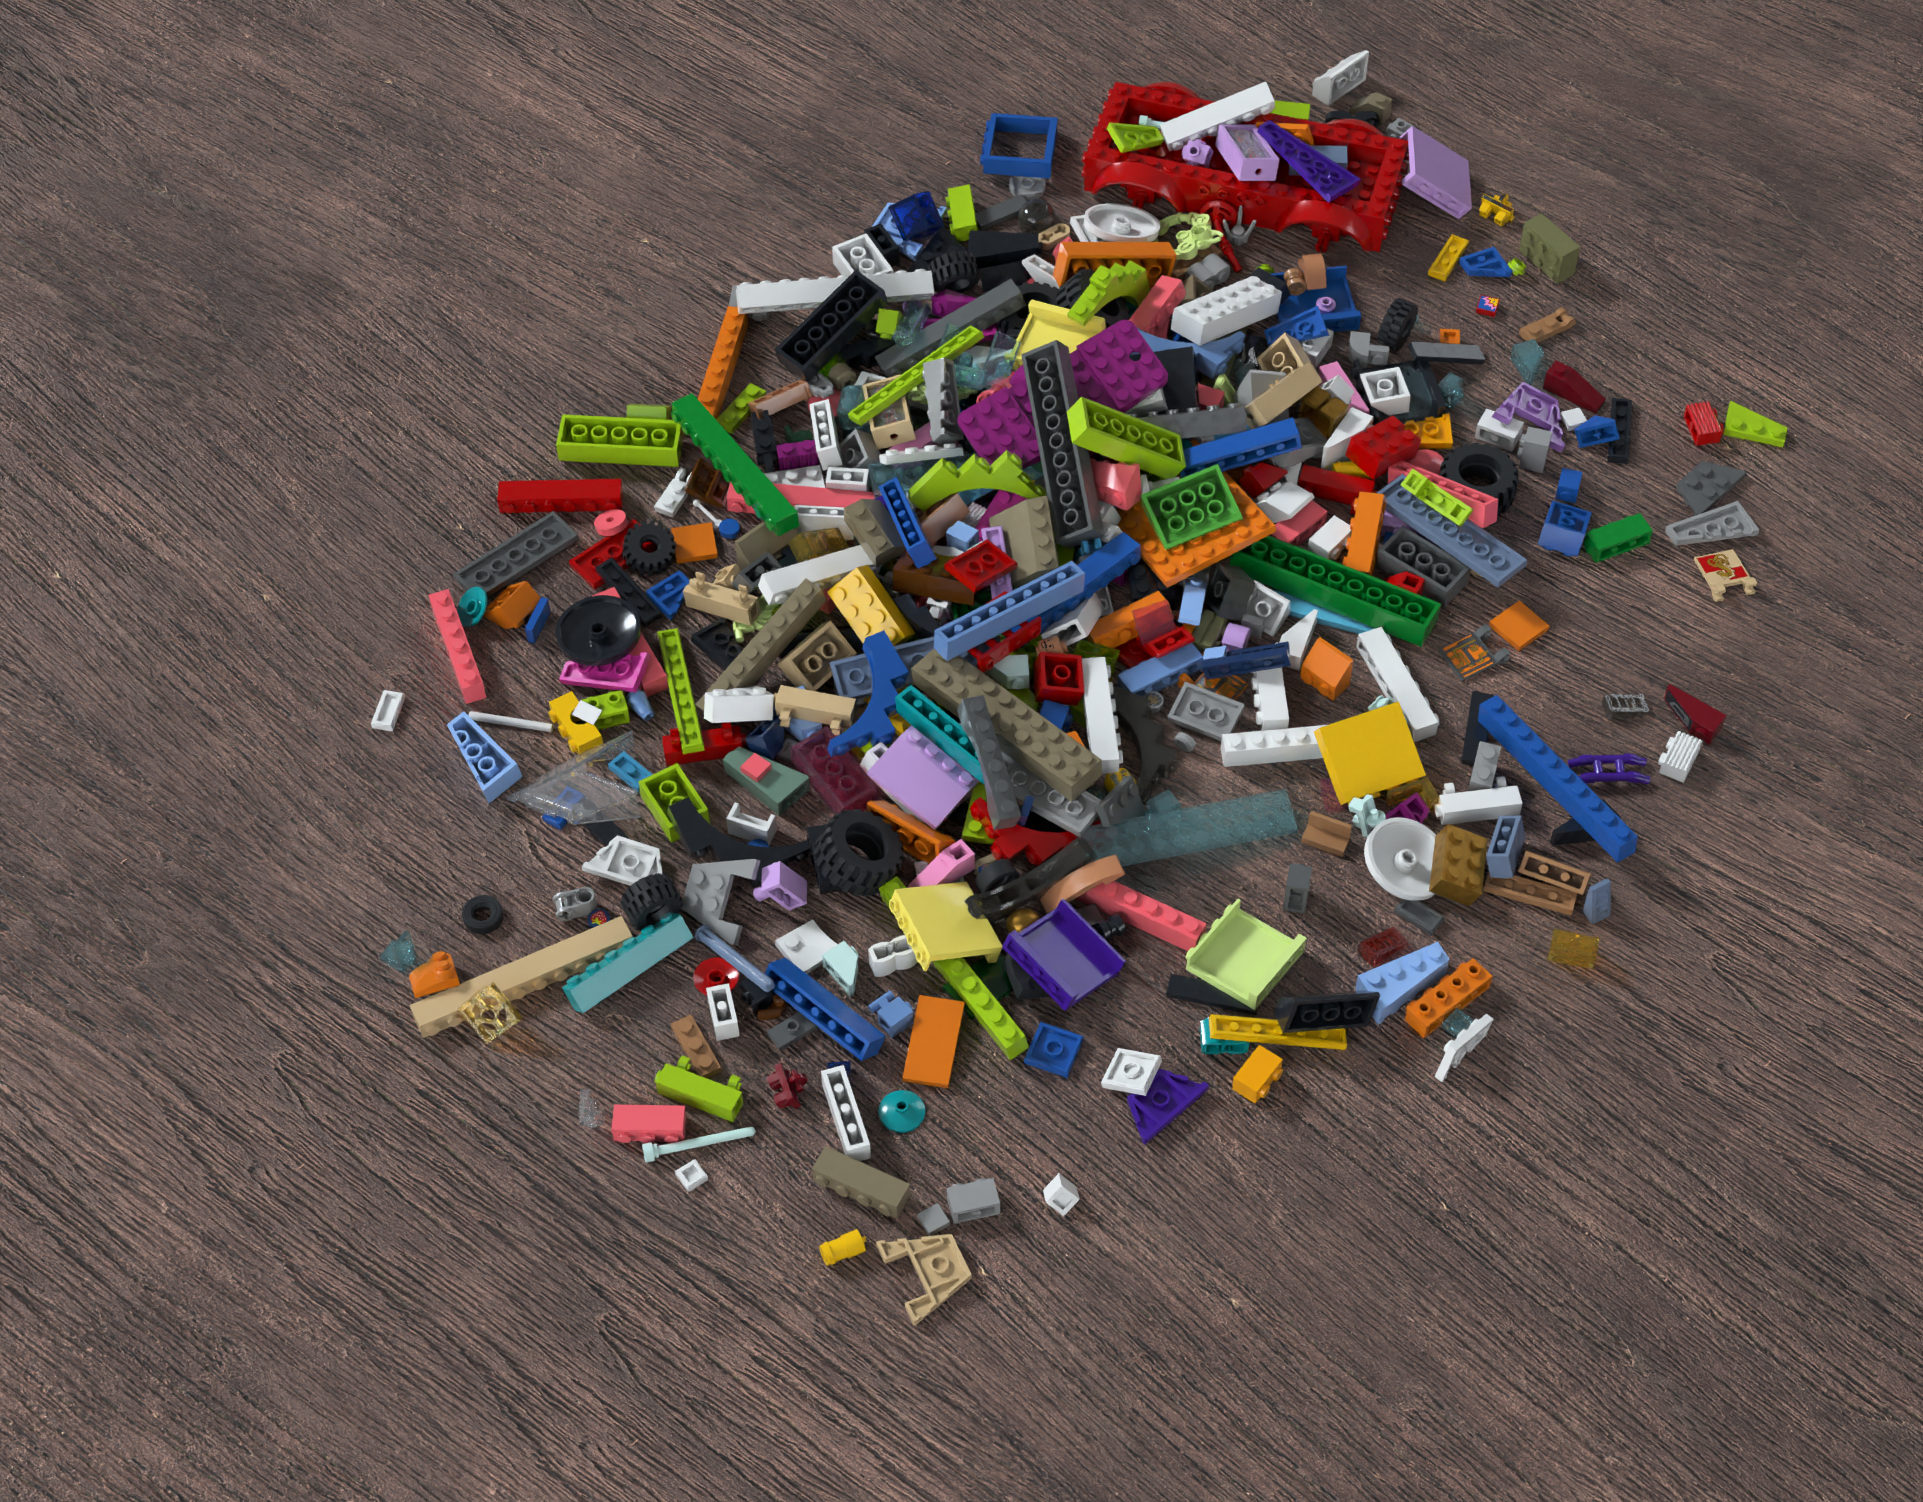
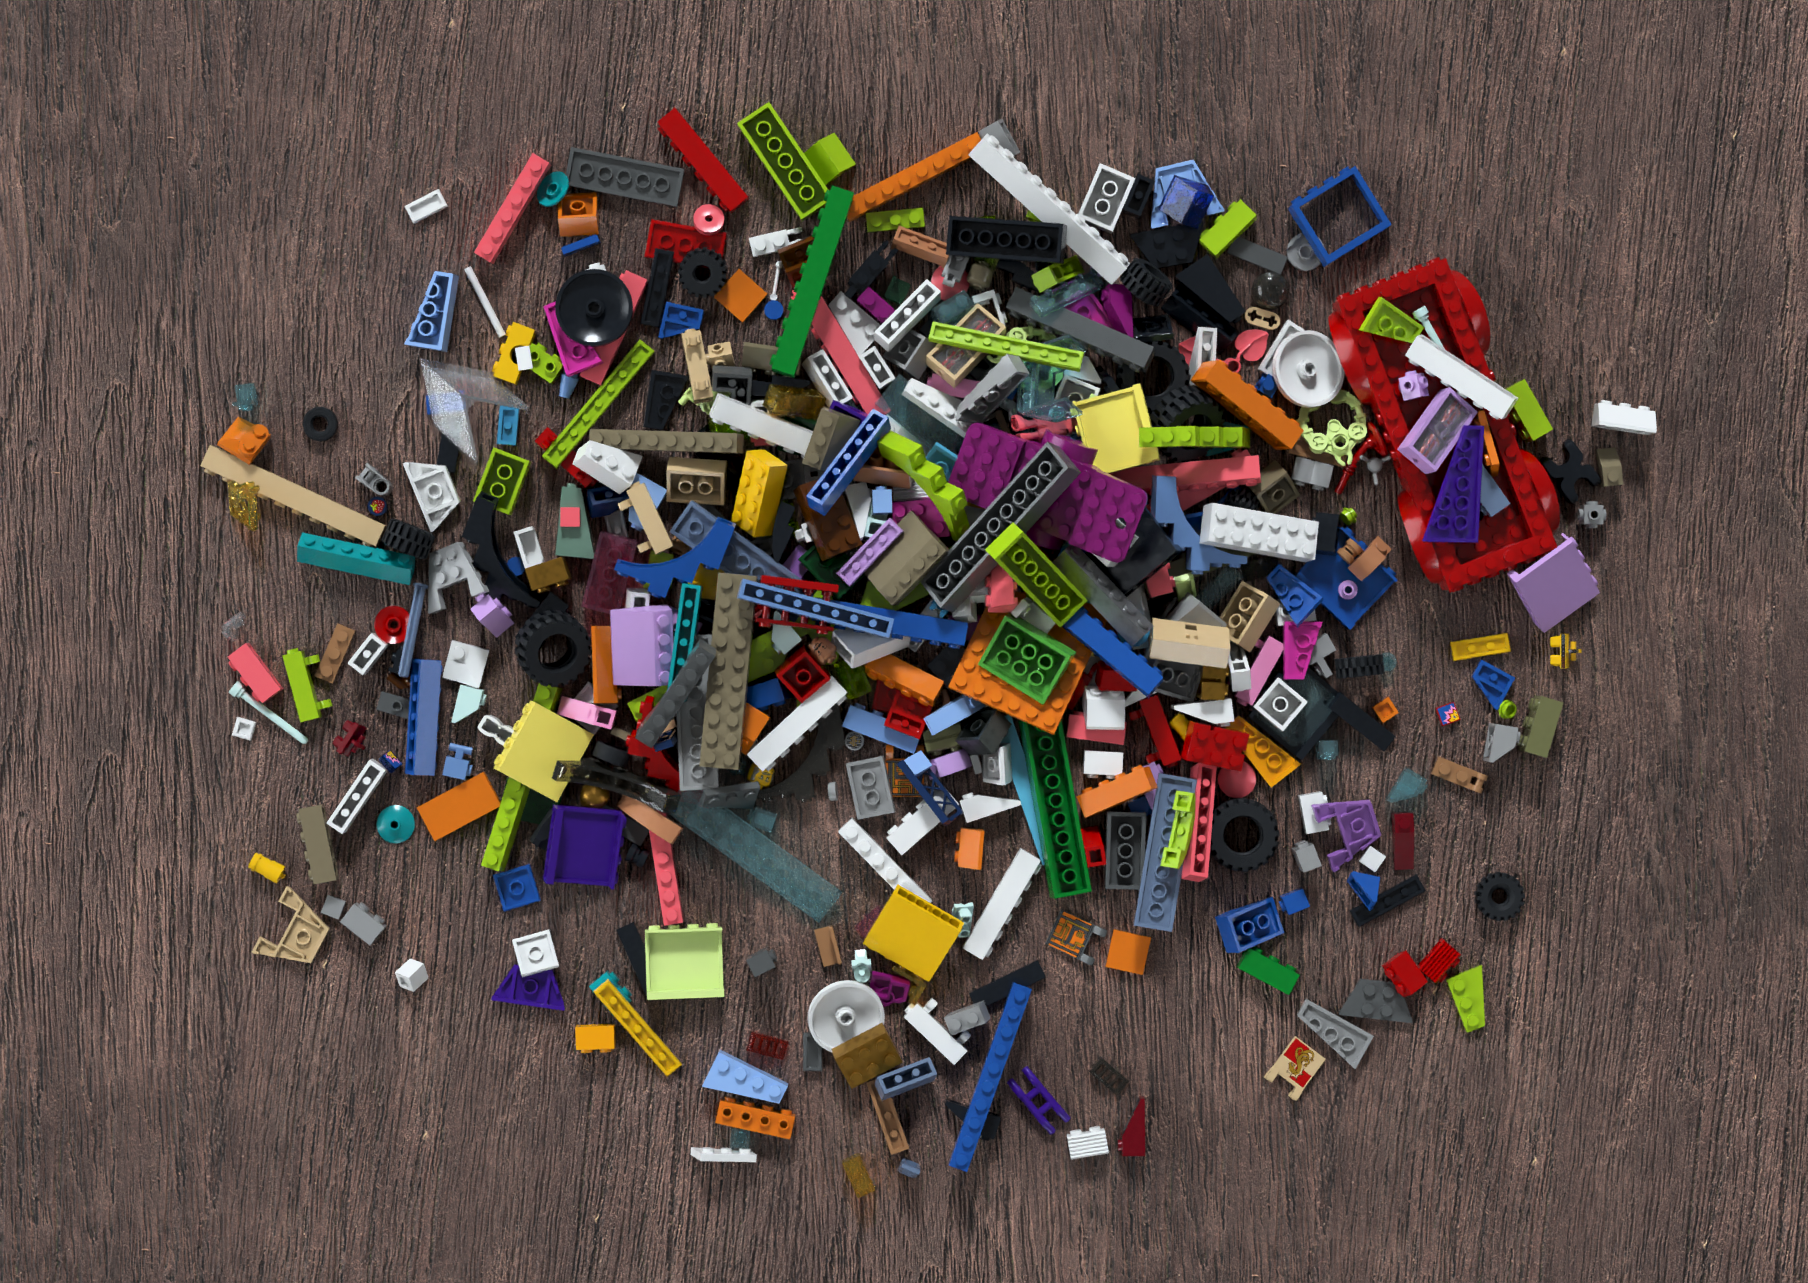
camera: 50 degrees right, 35 degrees up
(789, 818) = (548, 574): none -> pearl gold brick
(980, 565) = (848, 549): red tile -> none
(1153, 621) = (911, 700): clear pink piece -> none
(1325, 1011) = (675, 1049): black slope -> none
(1345, 350) = (1298, 647): none -> dark pink wing
(1538, 278) = (1499, 741): none -> light grey slope
(1555, 872) = (912, 1124): medium nougat brick -> none
(1680, 346) = (1513, 900): none -> black tyre
(1696, 448) = (1404, 974): none -> red brick

